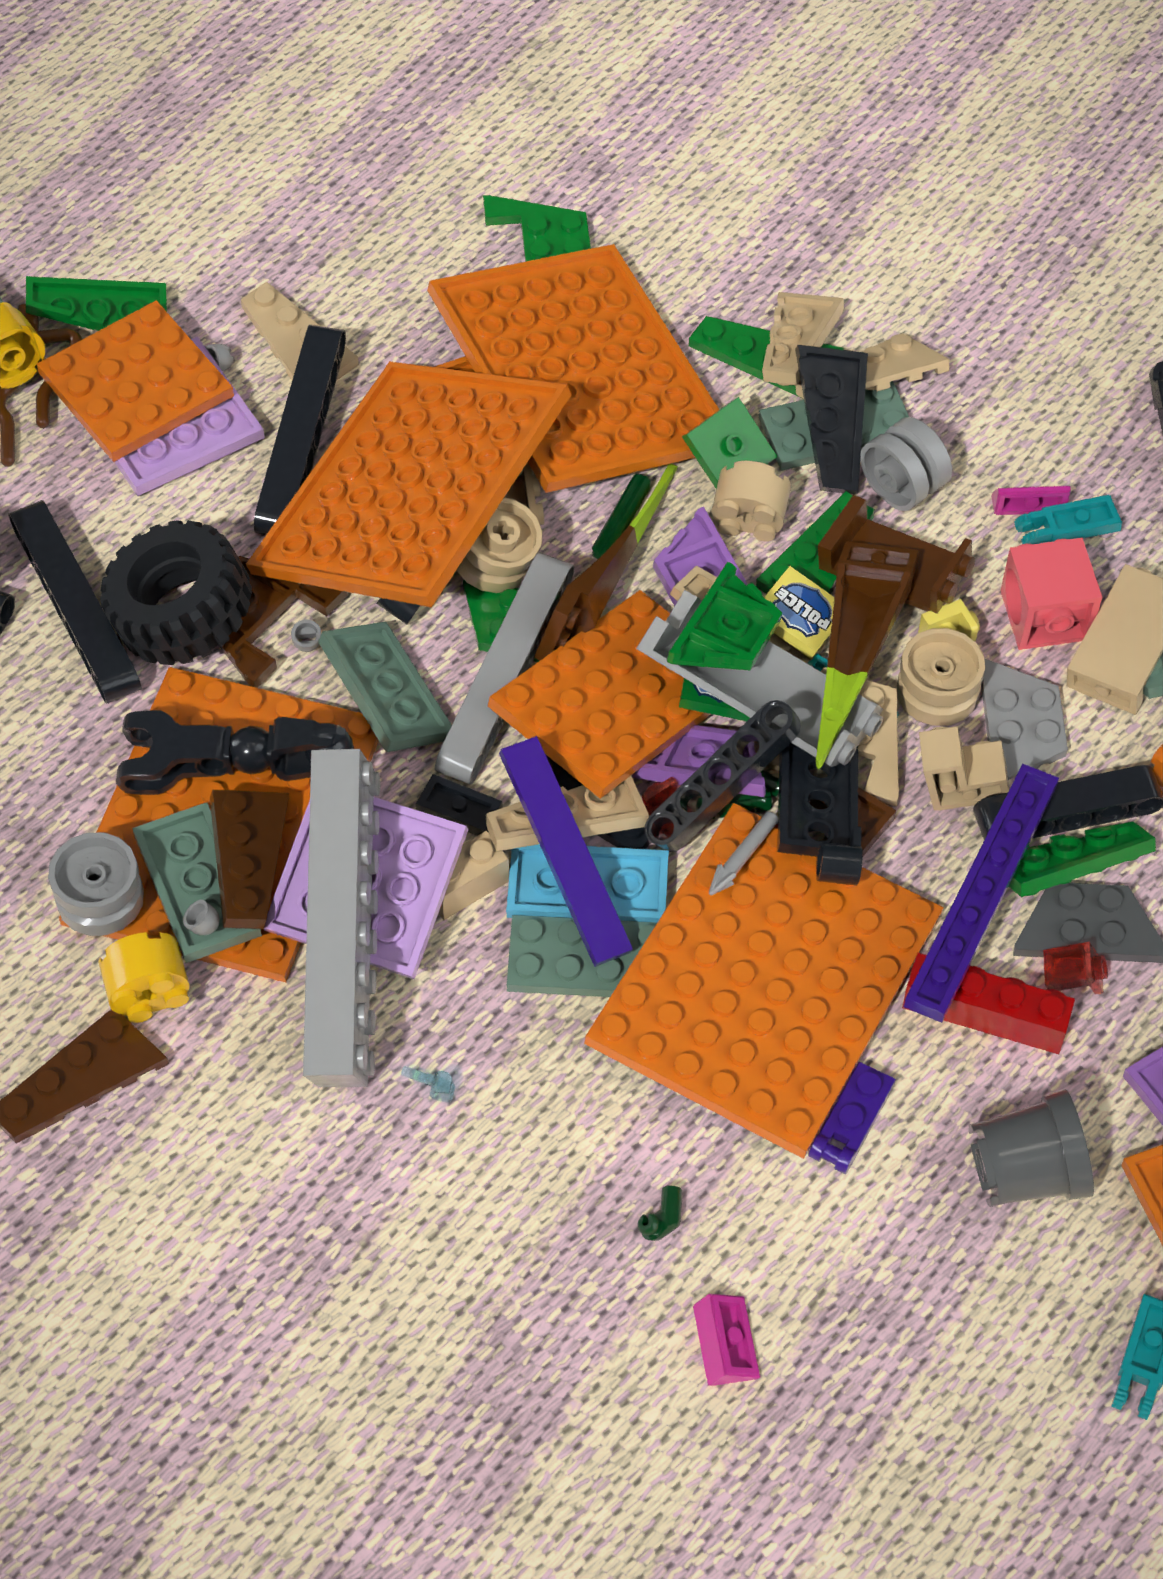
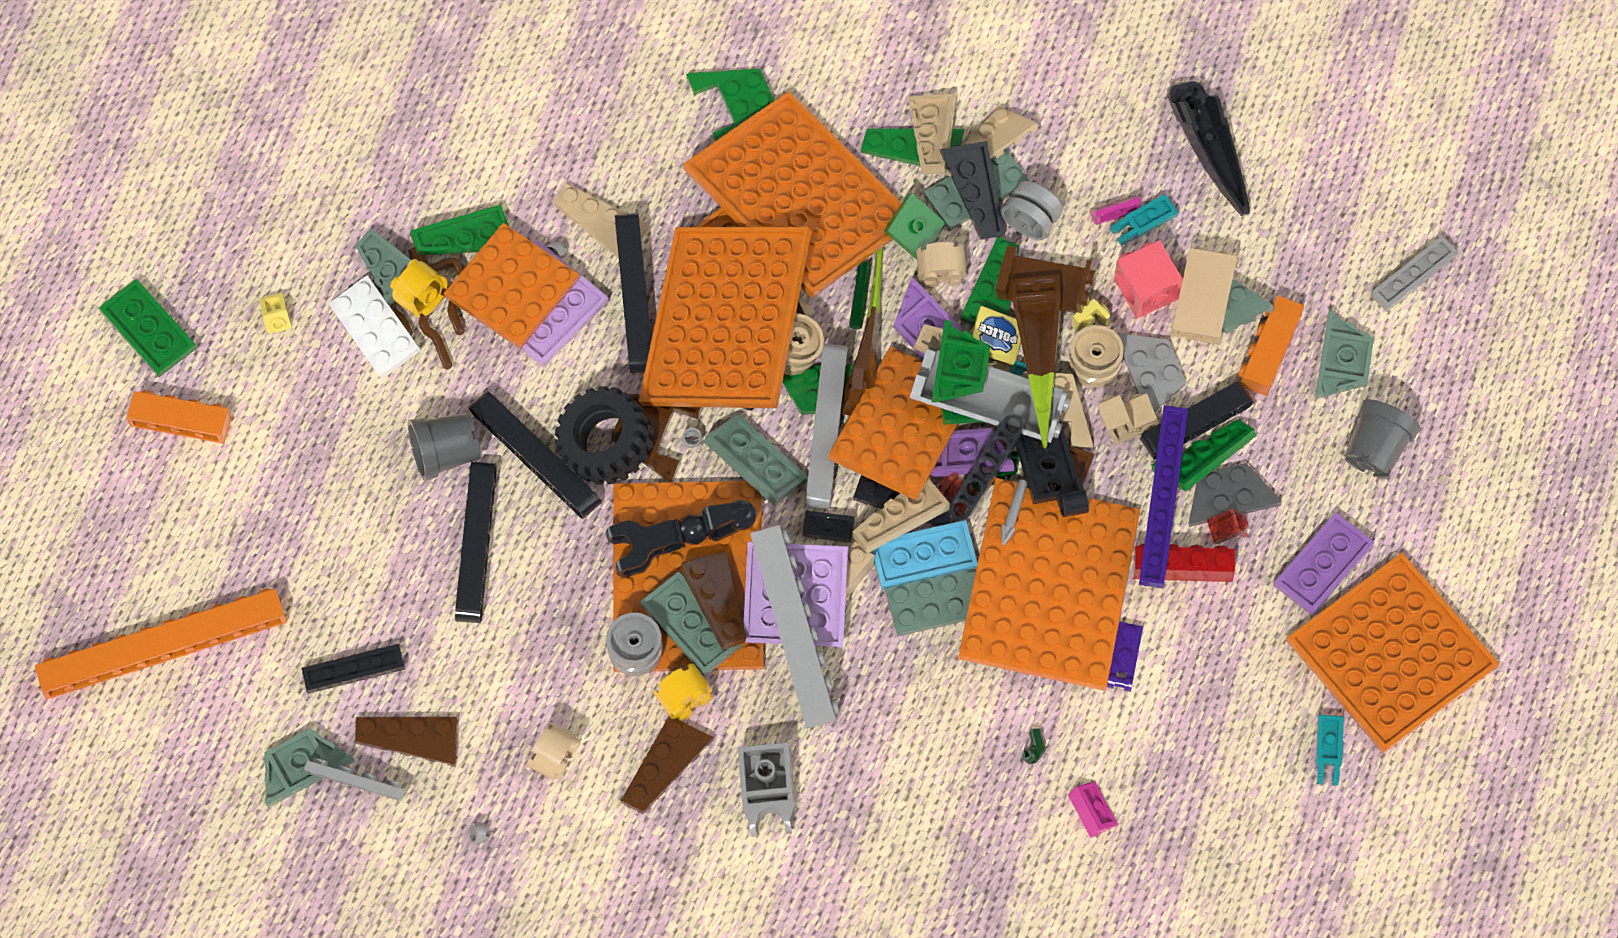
camera: 15 degrees left, 10 degrees up
(201, 918) = (707, 648): light grey hinge -> none
(217, 1150) = (770, 793): none -> light grey brick
(441, 1083) = (880, 705): clear light blue hand -> none
(565, 851) = (908, 542): dark purple tile -> none
(1034, 1153) = (1236, 651): dark grey piece -> none

